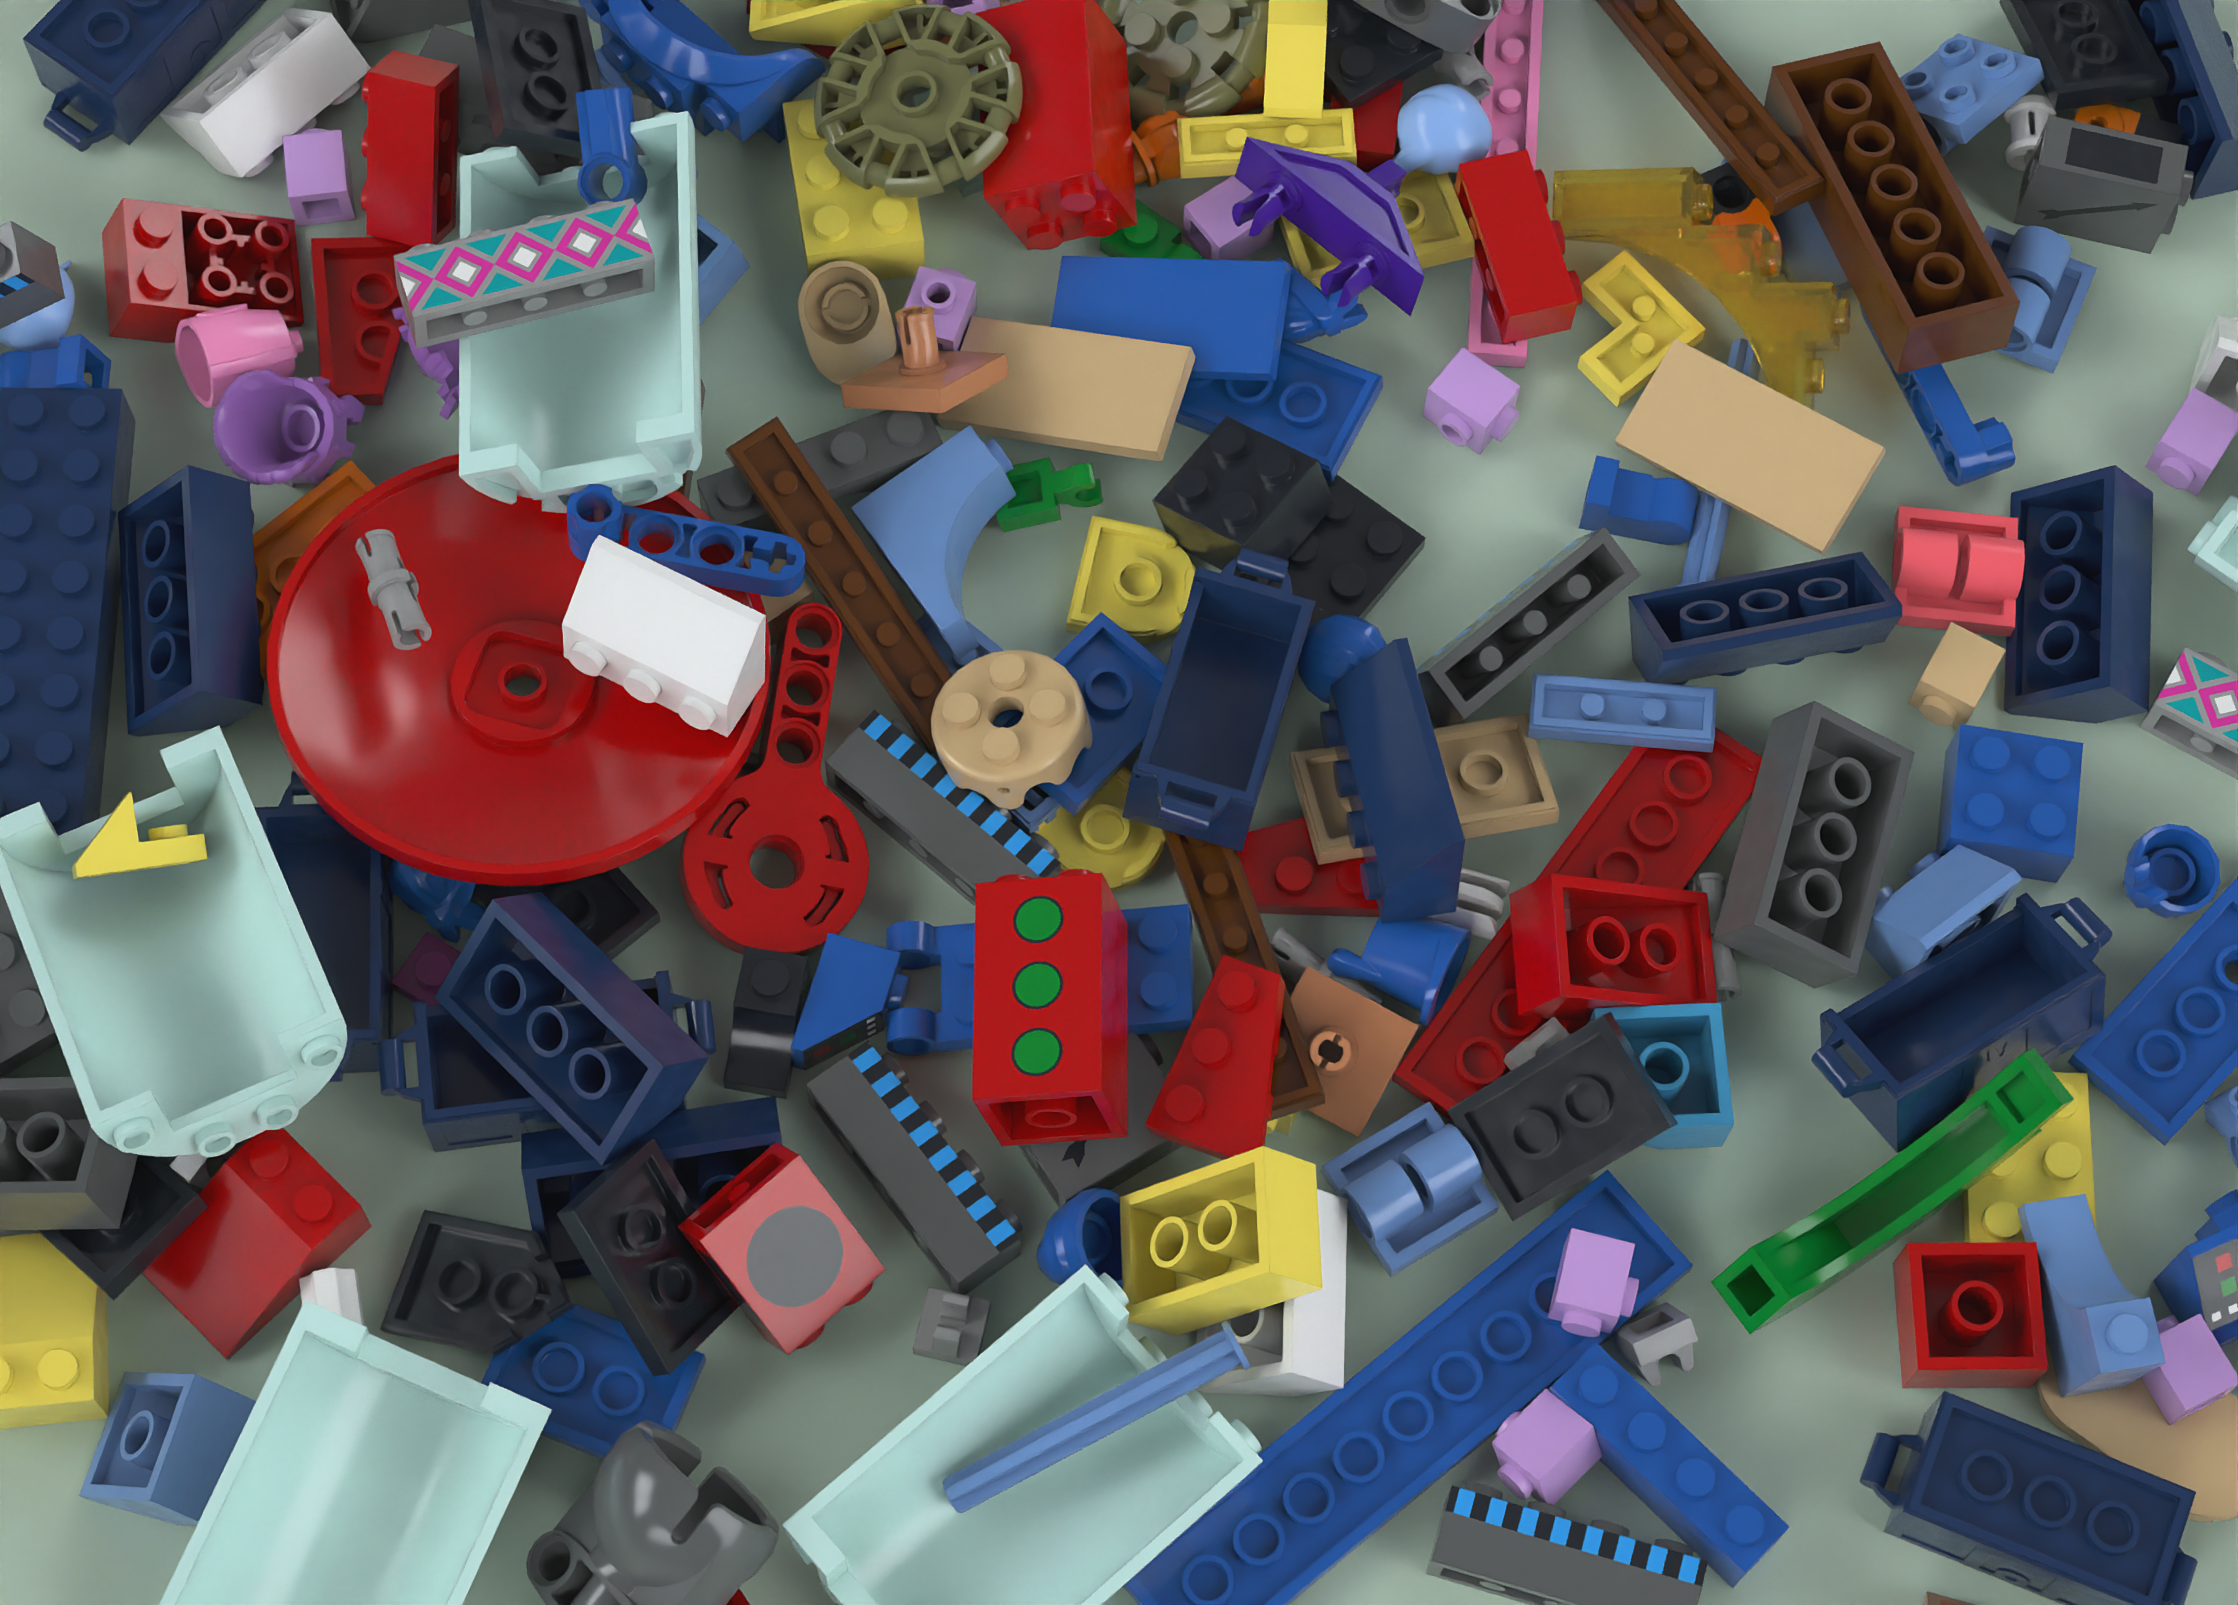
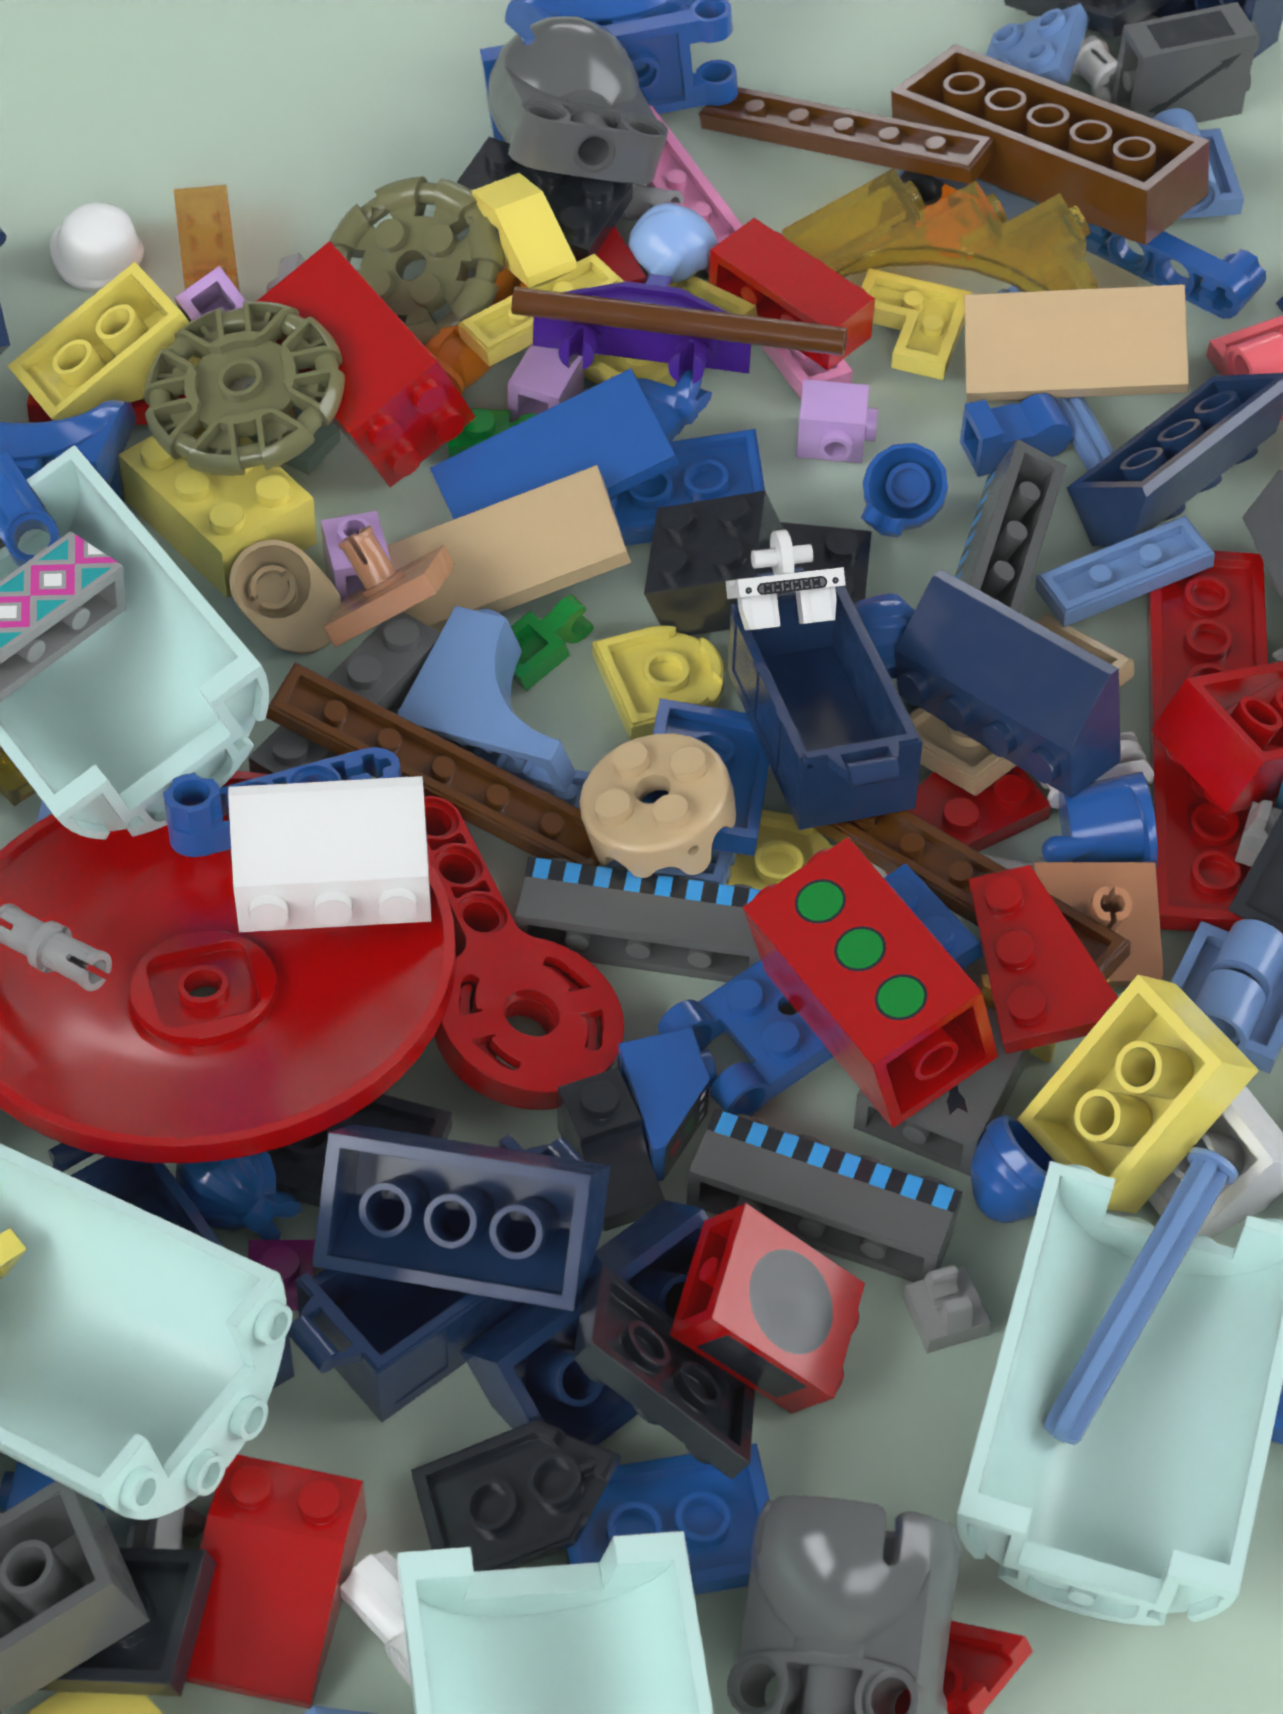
camera: 30 degrees left, 15 degrees down
(1219, 572) = (813, 589): none -> white hips
(1357, 239) = (679, 321): none -> reddish brown piece
(1474, 515) = (903, 489): none -> blue piece

